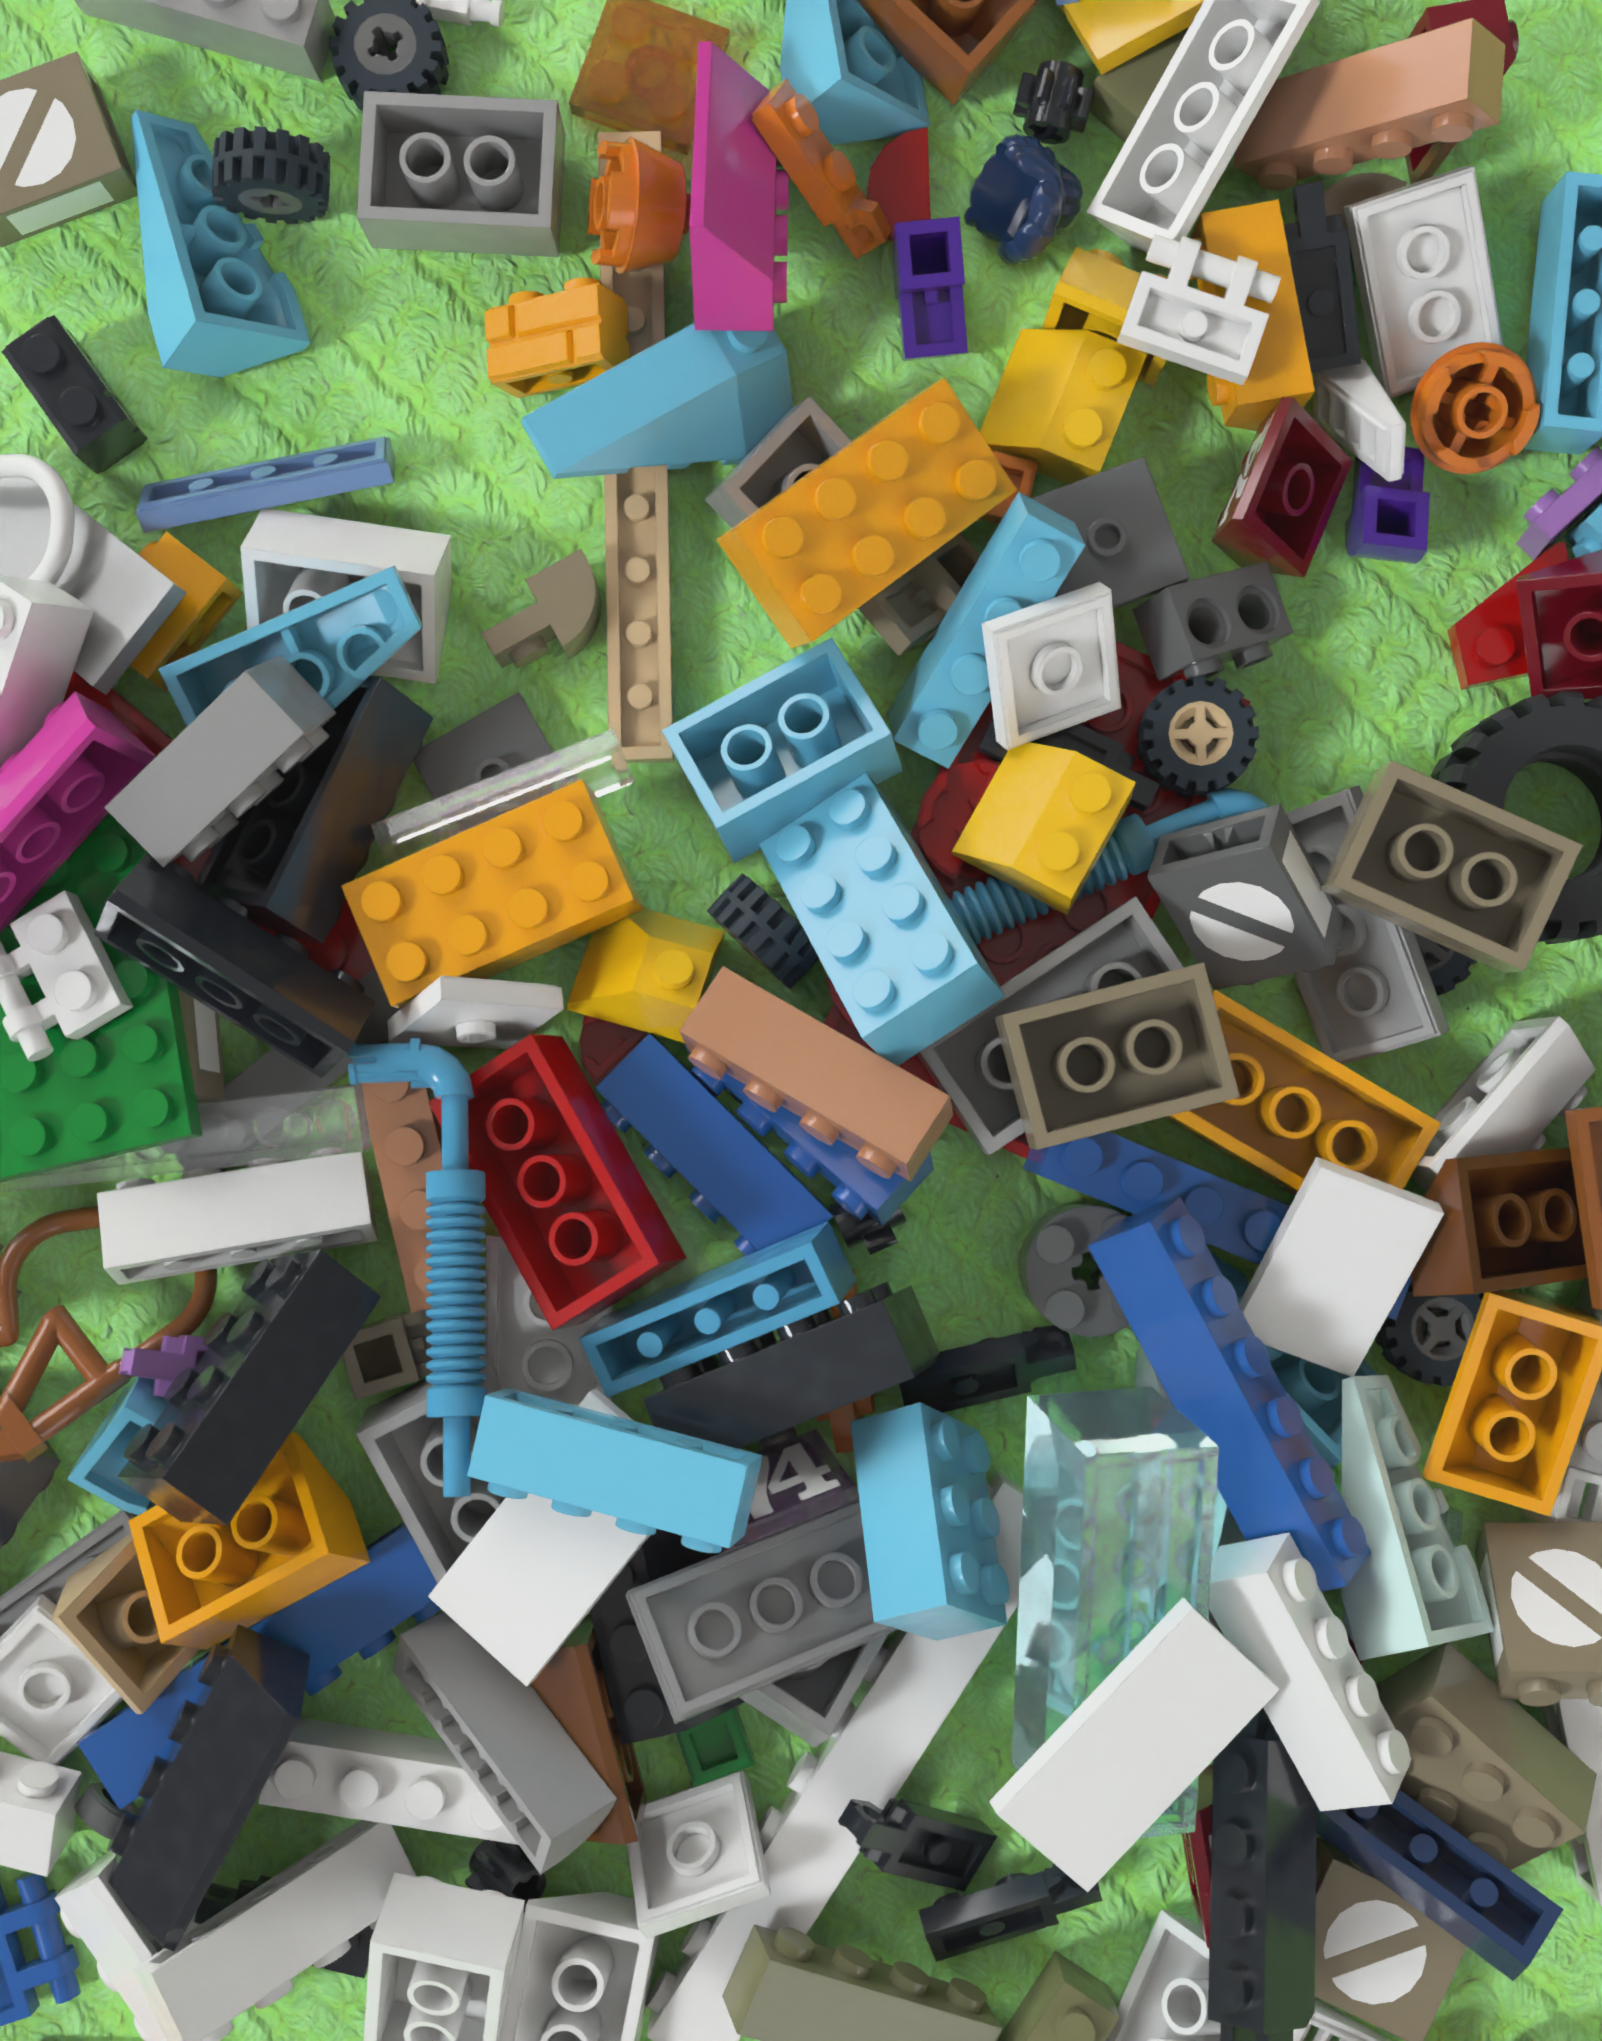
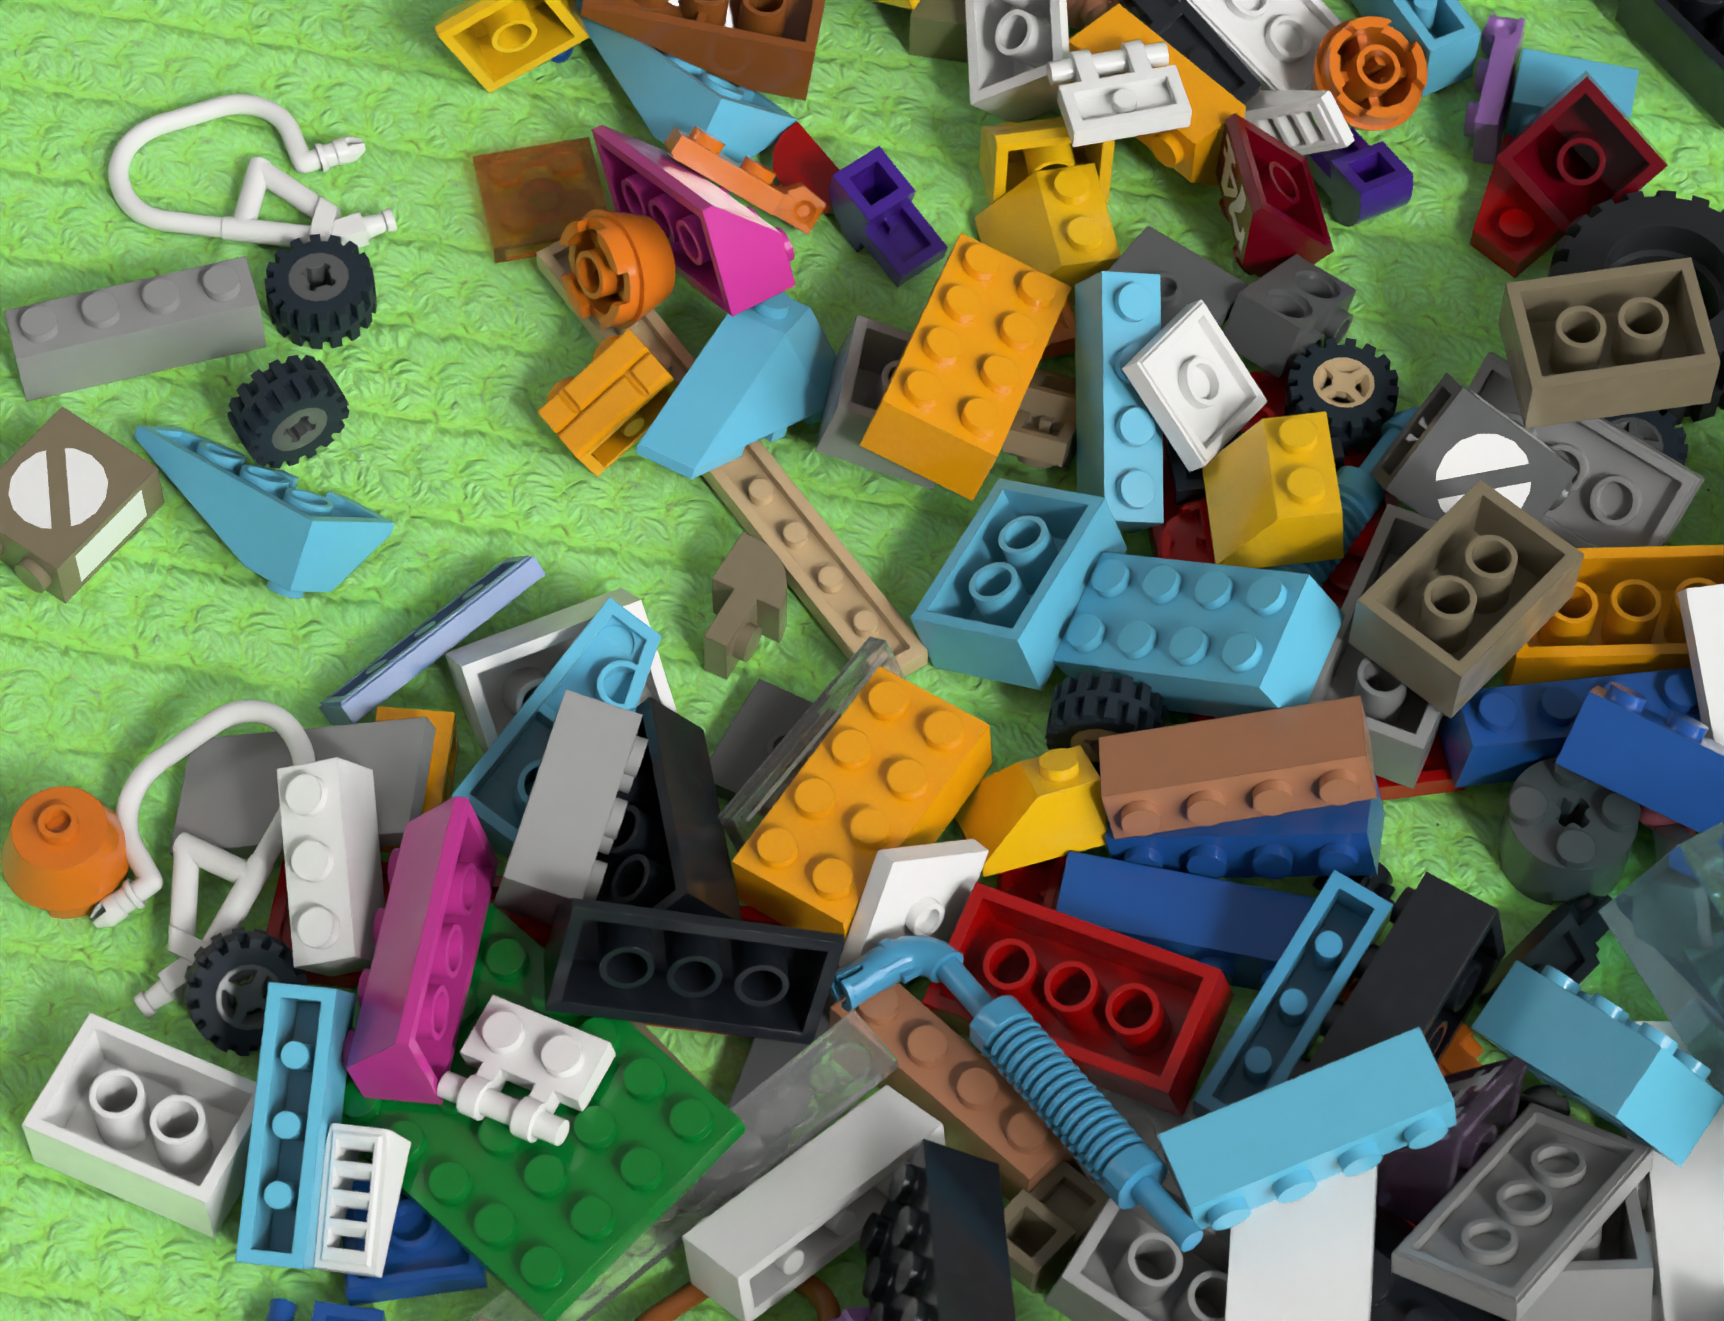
camera: 35 degrees left, 30 degrees down
(74, 394) = (217, 656): black brick -> none
(461, 173) = (448, 332): light grey brick -> none
(1023, 198) = (911, 122): dark blue hair -> none
(1053, 102) = (885, 53): black gear -> none

